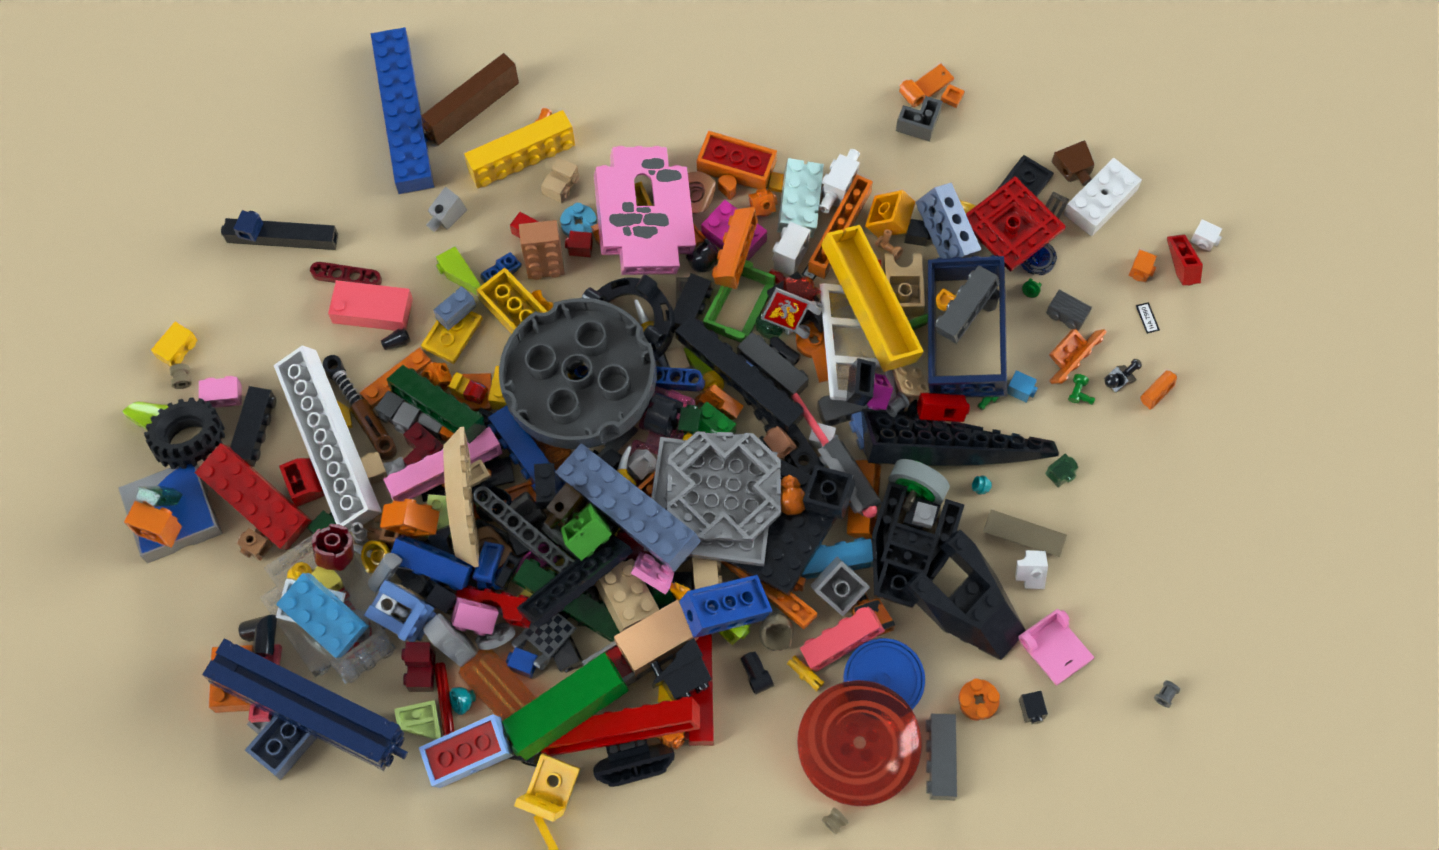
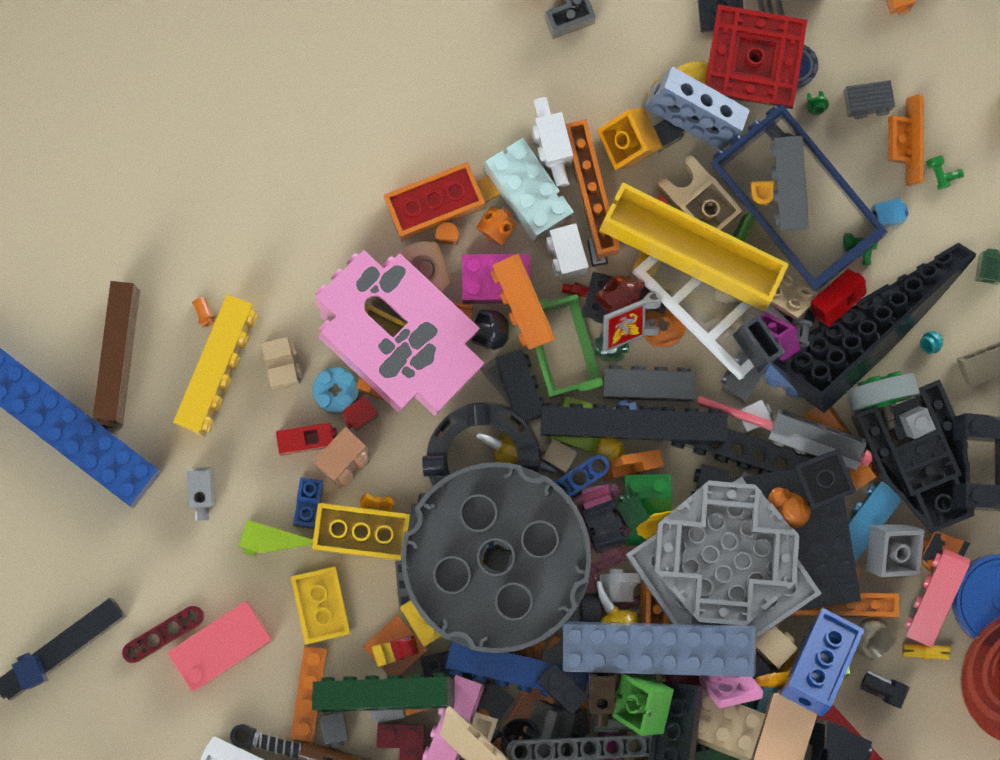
camera: 45 degrees left, 15 degrees up
(396, 339) = (275, 657): black cone -> none
(405, 417) = (359, 726): light grey brick -> none
(438, 374) = (350, 661): orange brick -> none
(455, 308) = (307, 583): sand blue brick -> none
(779, 442) = (726, 460): nougat brick -> none
(784, 350) = (646, 359): black bar -> none
(820, 363) = (691, 344): orange sticker -> none
(883, 241) = (644, 170): light nougat piece -> none
(1122, 375) = (968, 126): black piece -> none
(1147, 317) = (941, 44): sticker -> none

